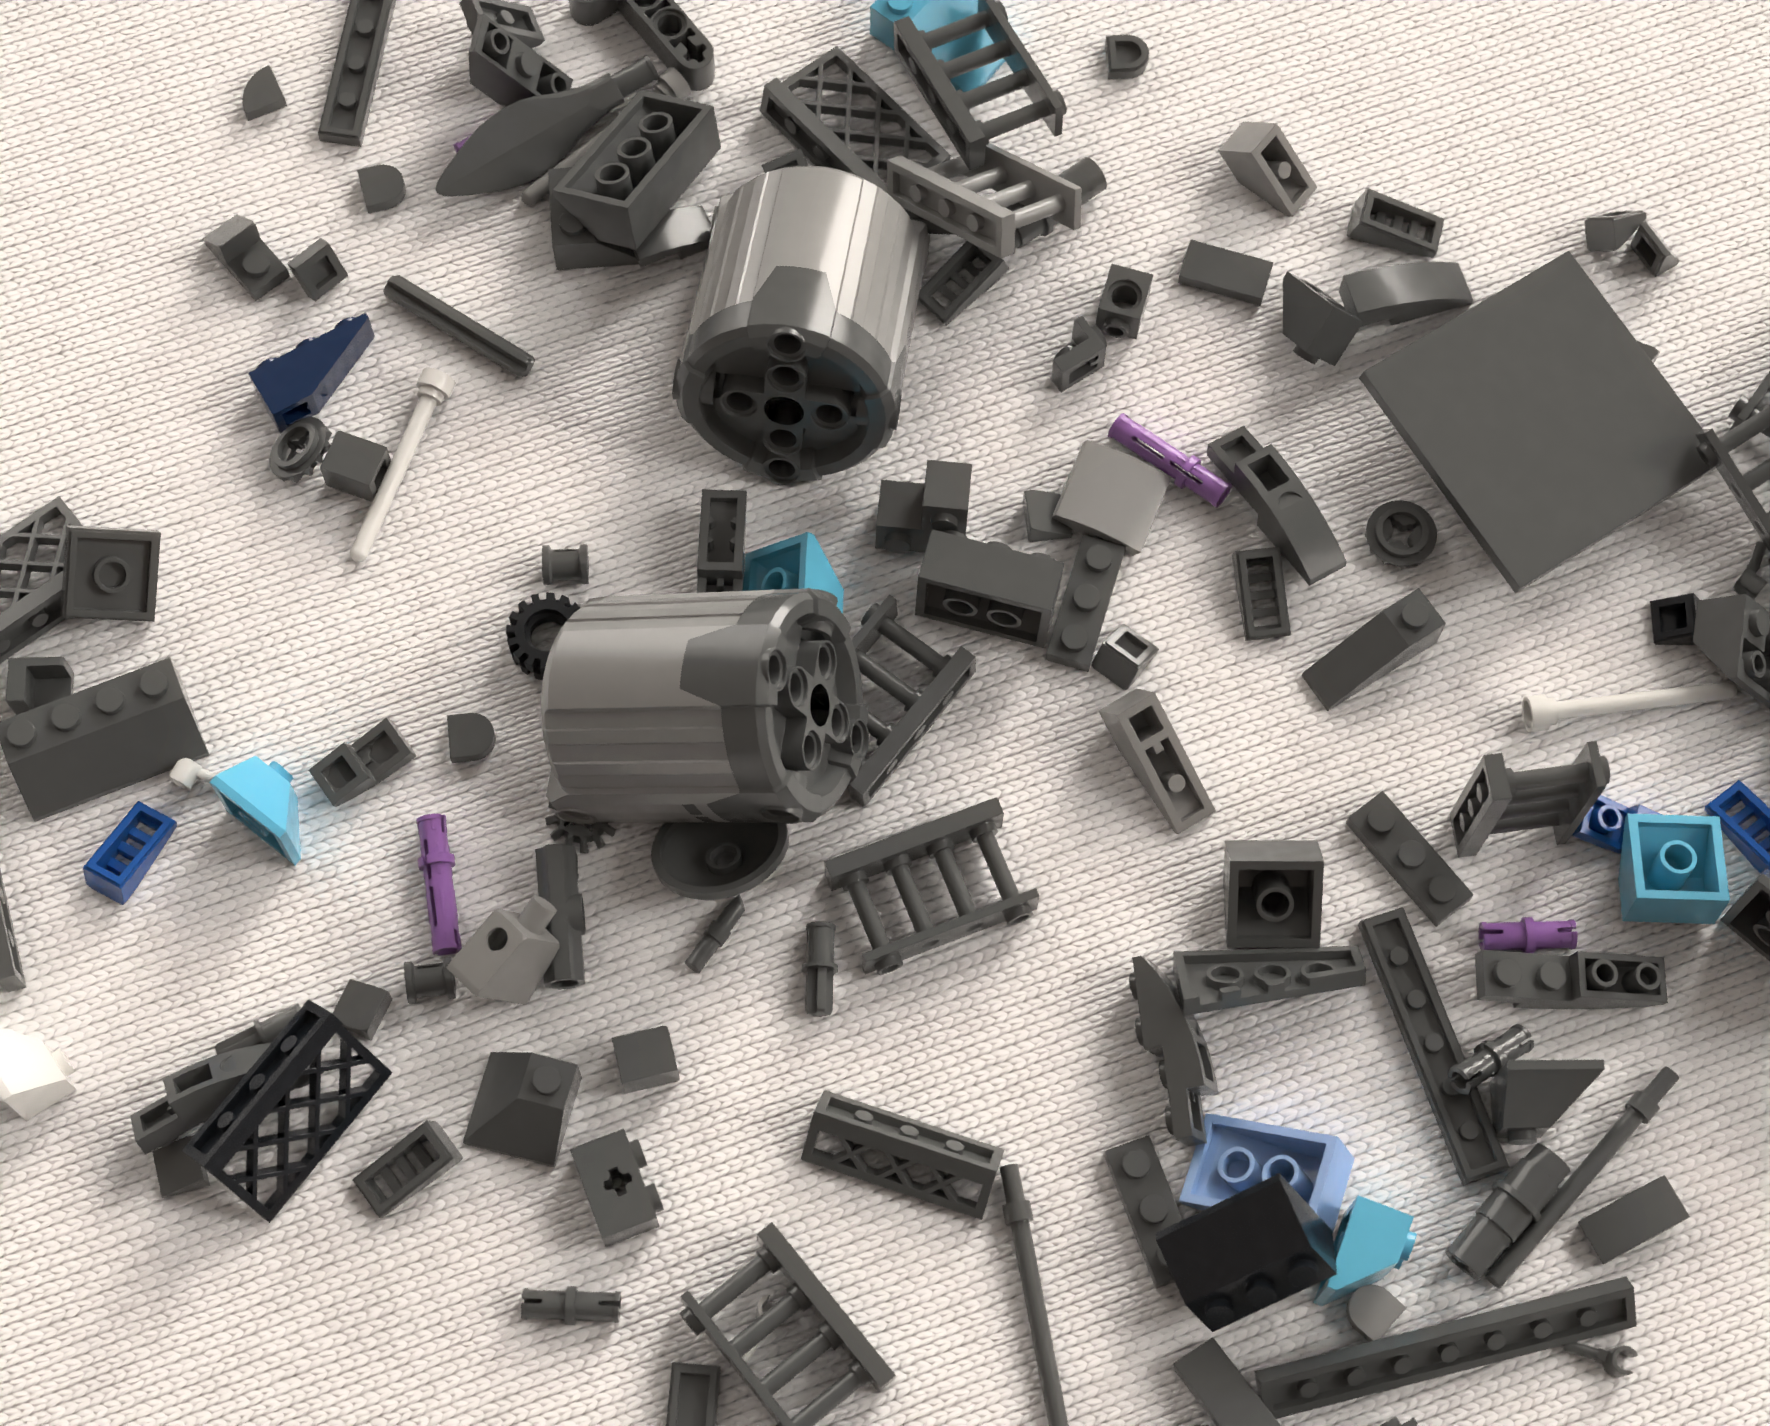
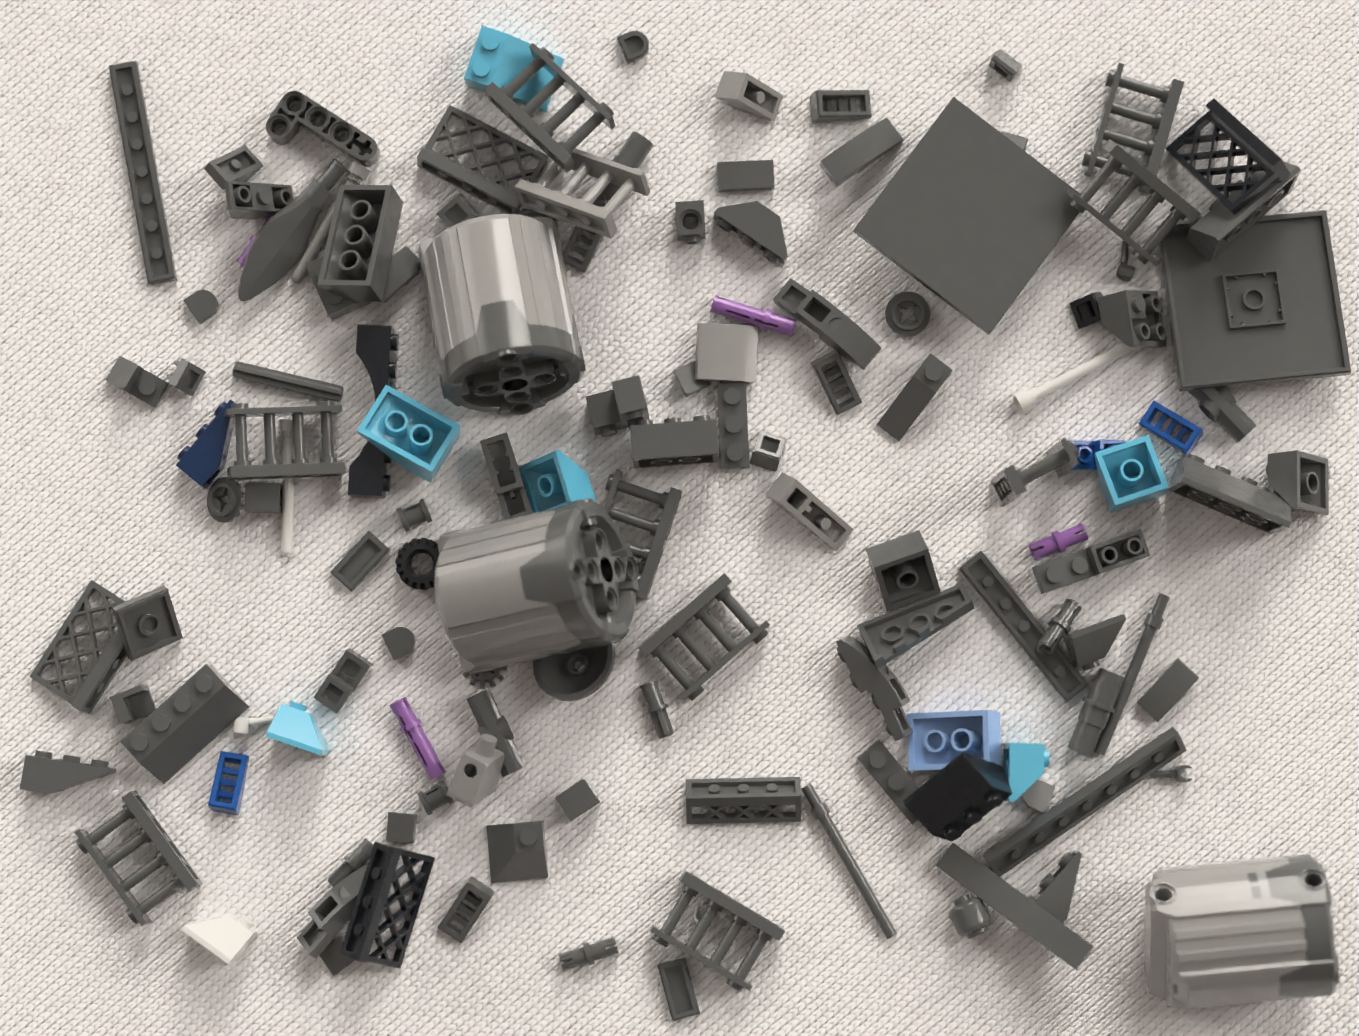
camera: 15 degrees left, 15 degrees up
(262, 94) = (101, 268): dark grey tile -> none
(384, 422) = (300, 464): none -> dark grey fence
(459, 604) = (360, 561): none -> dark grey tile
(525, 478) = (369, 469): none -> black arch
(605, 444) = (409, 433): none -> medium azure slope
(616, 1215) = (573, 873): dark grey brick -> none
(716, 935) = (589, 710): dark grey piece -> none
(1078, 362) = (675, 271): dark grey bracket -> none
(1214, 339) = (756, 227): none -> dark grey slope
(1316, 321) = (812, 192): dark grey slope -> none
(1409, 858) = (975, 518): dark grey plate -> none
(1612, 229) = (975, 62): dark grey slope -> none

